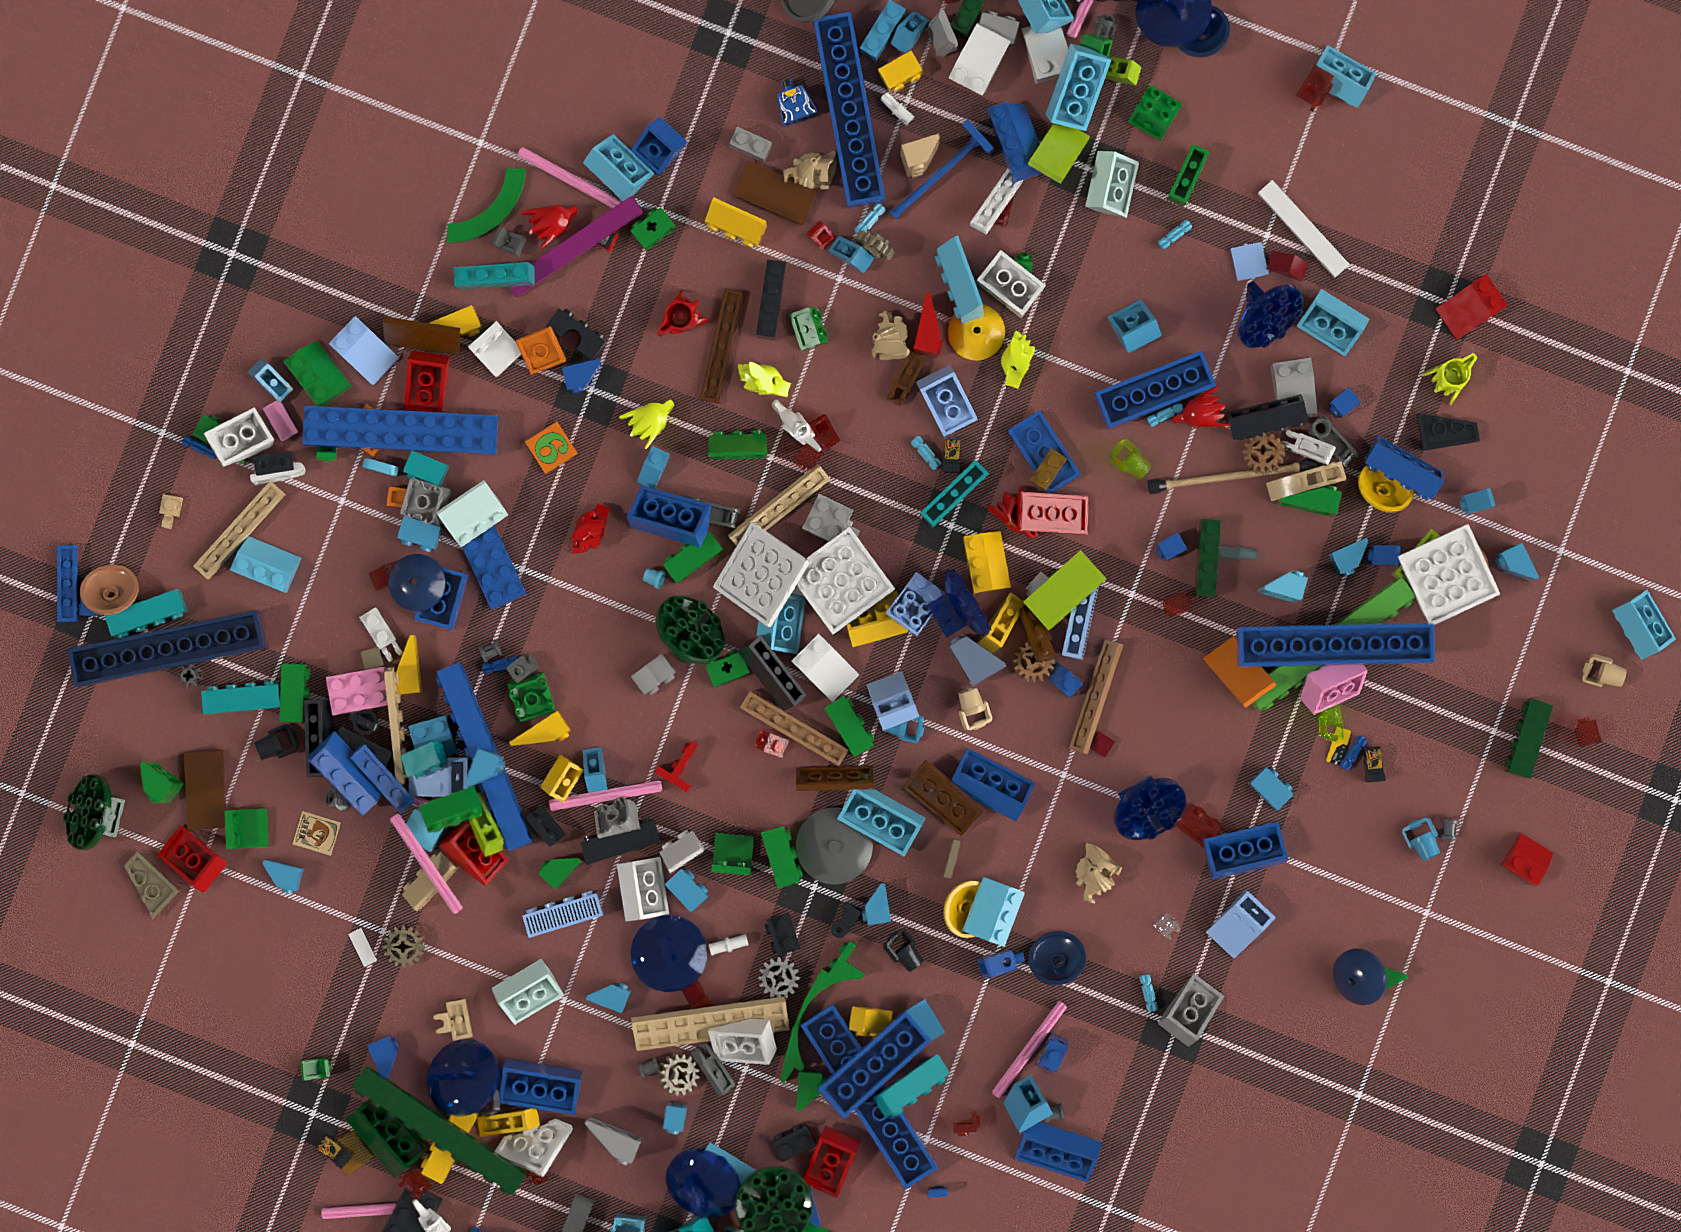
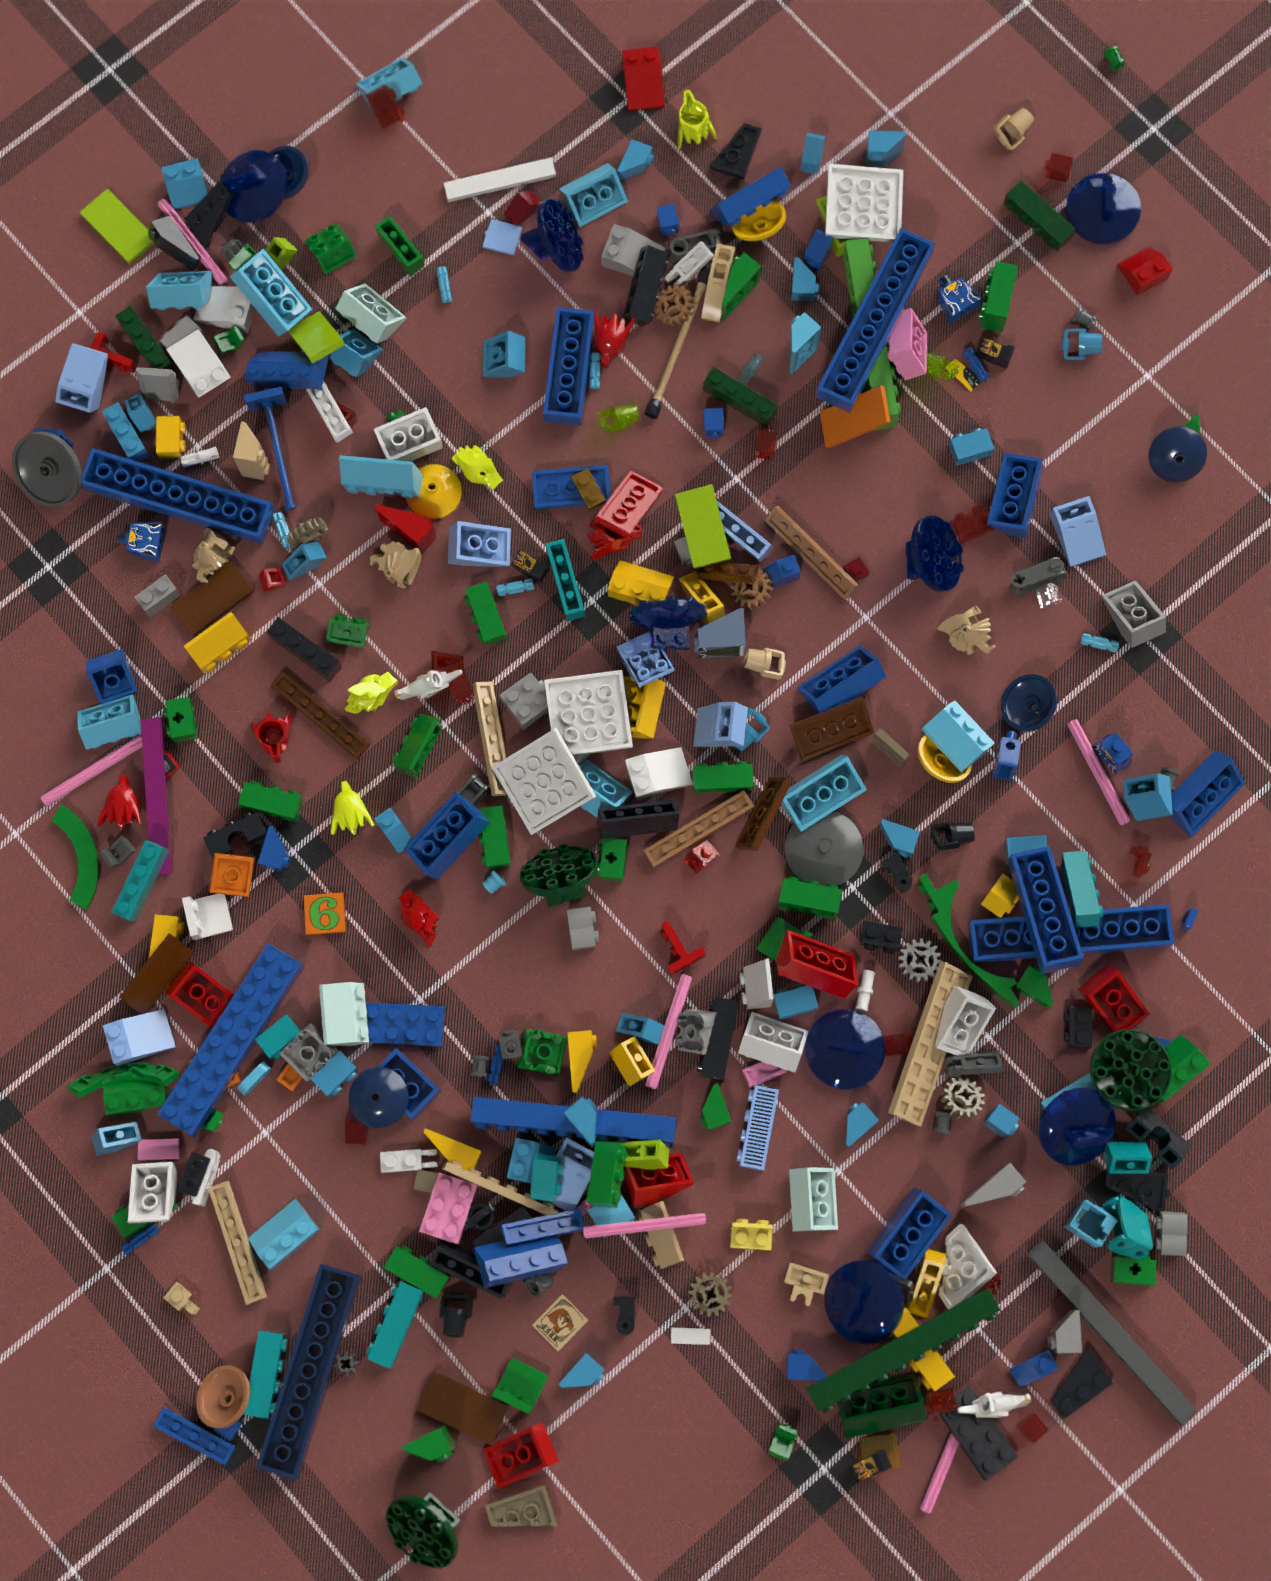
camera: 60 degrees left, 10 degrees down
(326, 353) = (134, 1071): none -> green tile
(351, 885) = (626, 1314): none -> black leg
(470, 955) = (751, 1236): none -> light yellow bracket
(545, 826) = (667, 1100): black bracket -> none
(610, 891) = (761, 1073): none -> bright pink tile
(623, 347) = (271, 801): none -> green brick
(725, 893) = (817, 965): none -> red slope
(886, 440) = (485, 614): none -> green brick
(907, 376) = (438, 569): reddish brown hinge -> none
(1017, 72) = (229, 340): none -> green bracket
(1070, 194) = (357, 353): none -> dark azure slope
(1180, 909) = (1037, 576): none -> dark grey piece
(1388, 343) = (635, 160): none -> dark azure slope
(1407, 703) = (957, 298): none -> blue torso
(1426, 740) = (997, 296): none -> green brick
(1568, 793) = (1103, 208): none -> clear blue bracket
(1644, 625) = (990, 78): medium azure slope -> none

